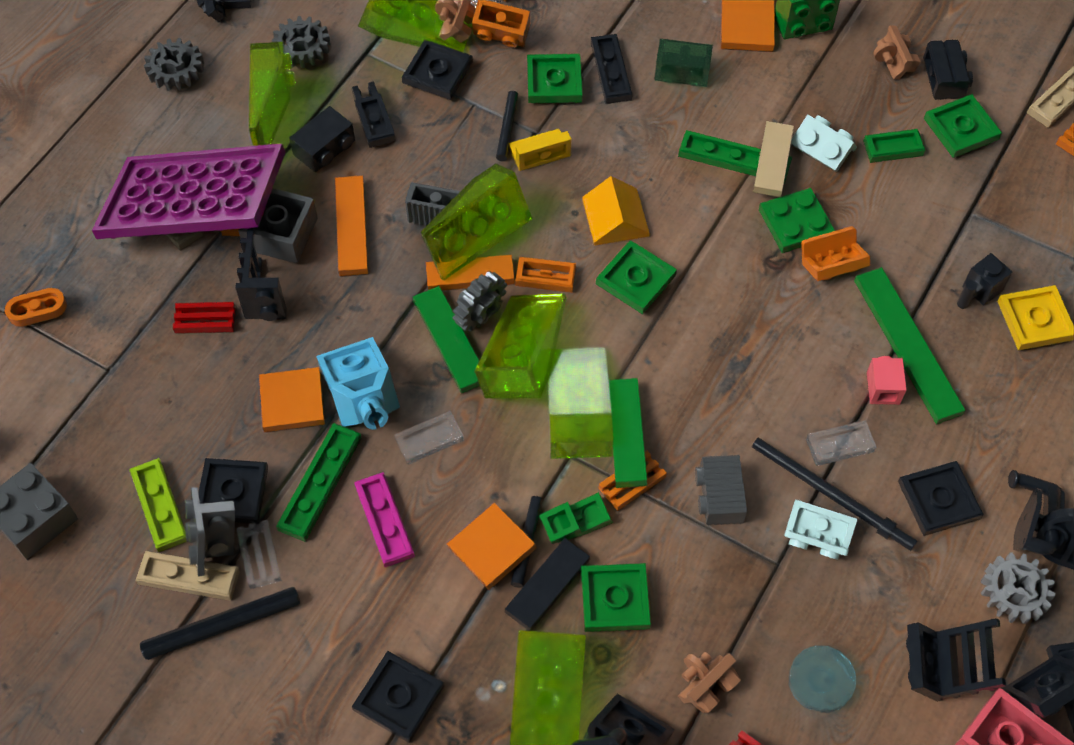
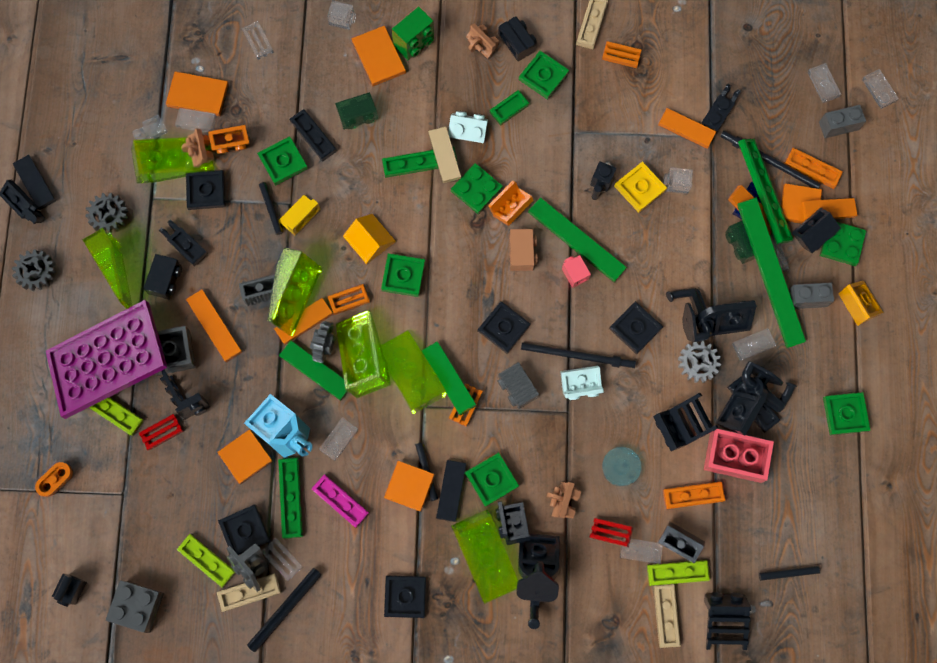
camera: 30 degrees left, 15 degrees up
(162, 268) = (118, 415): none -> lime tile
(575, 519) = (446, 444): green slope -> none
(612, 670) = (513, 522): none -> black bracket
(742, 407) = (503, 327): none -> black tile
(820, 318) = (521, 249): none -> nougat brick
(841, 443) = (568, 322): clear plate -> none

